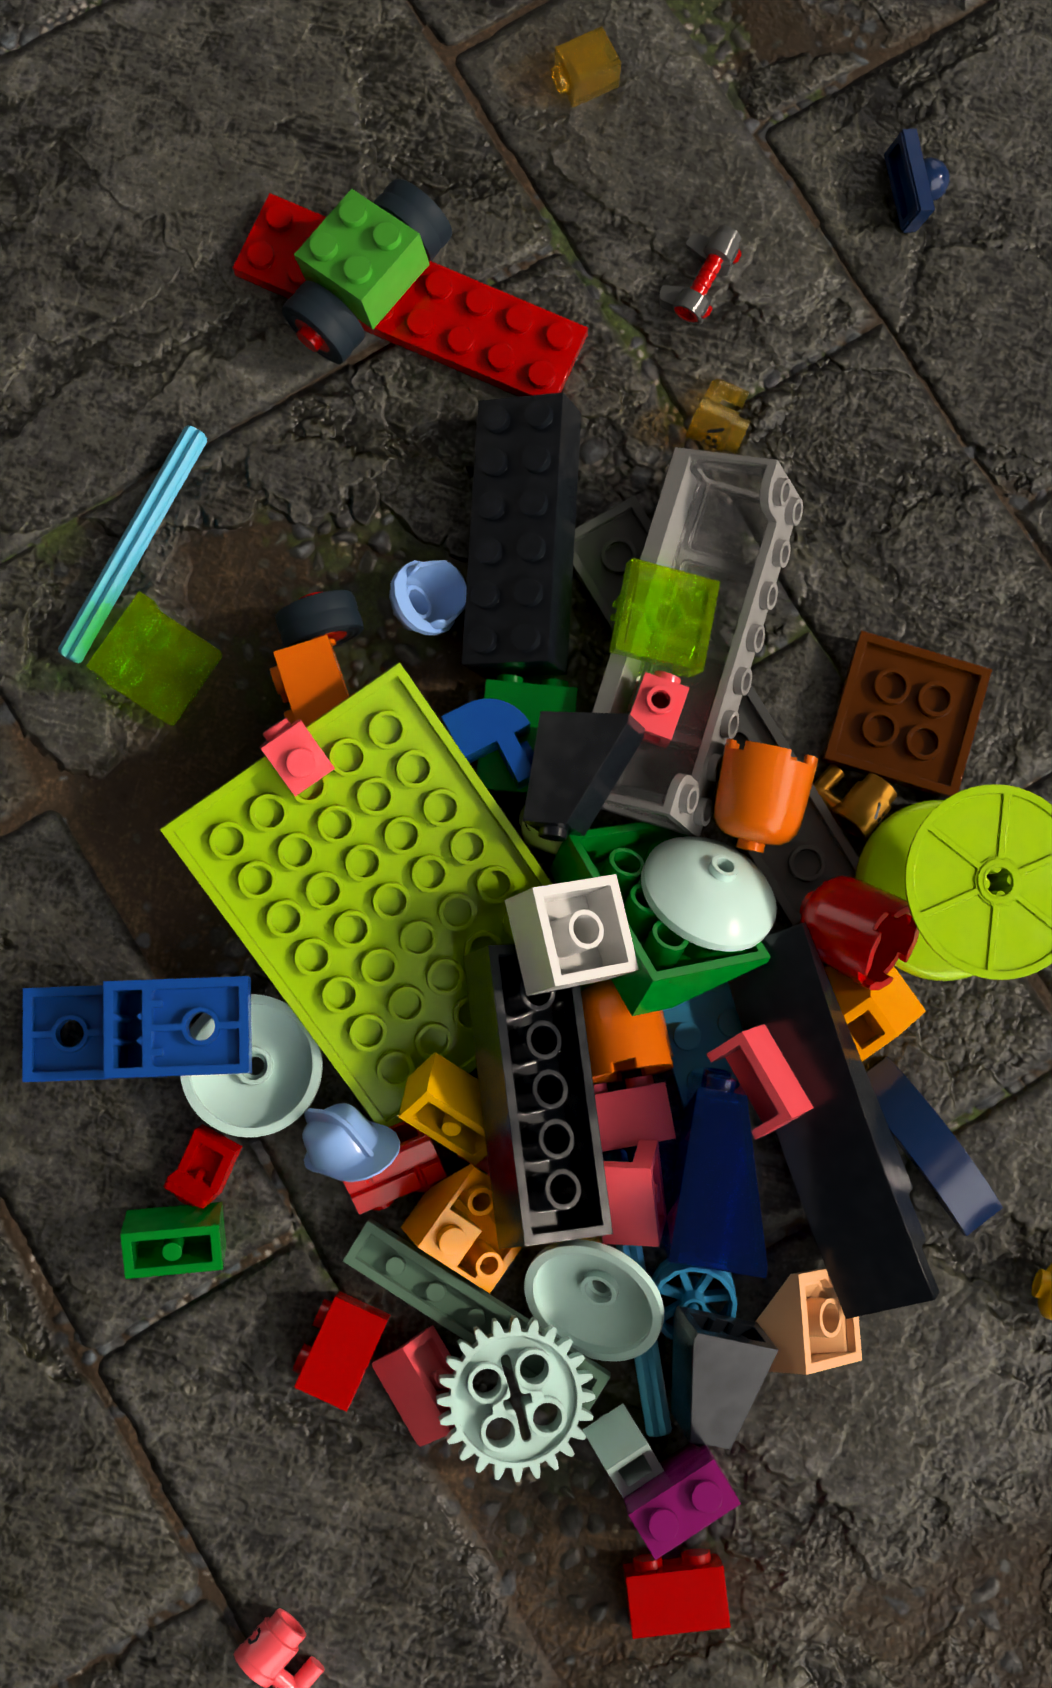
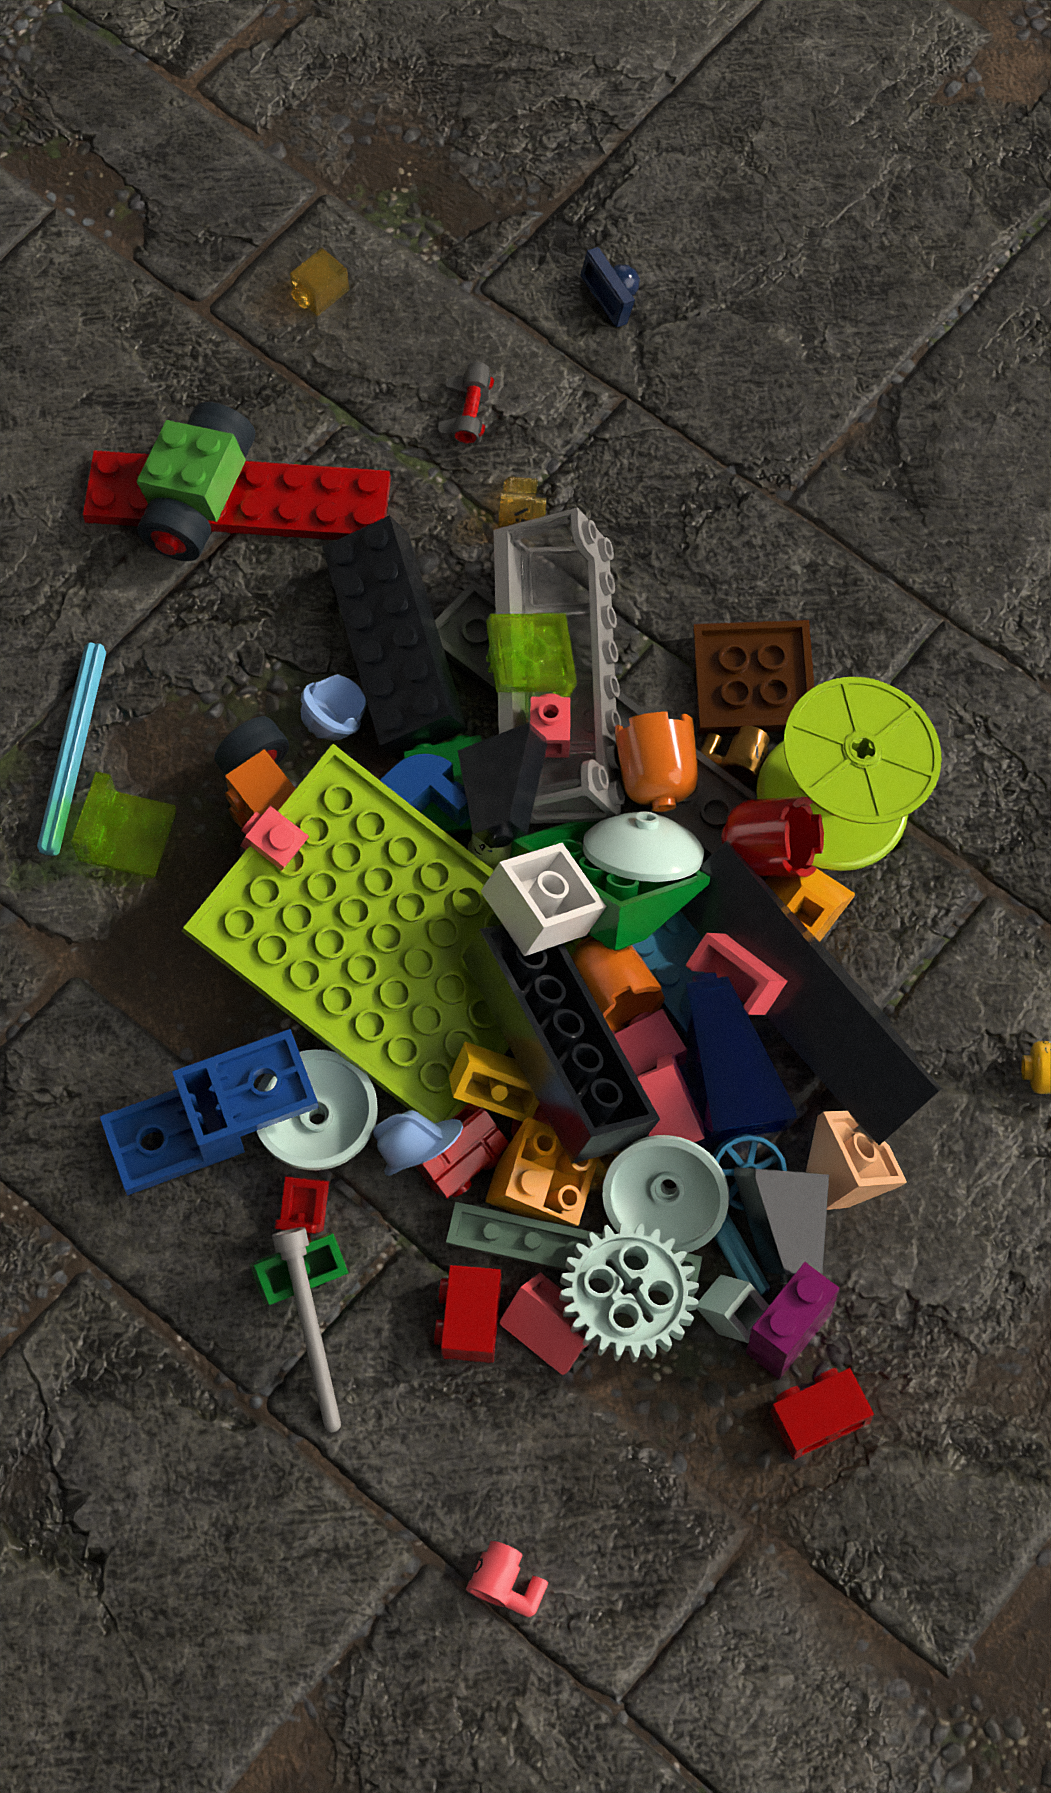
camera: 15 degrees left, 15 degrees down
(164, 1229) = (292, 1247): none -> light grey piece
(933, 1149) = (906, 998): dark blue slope -> none

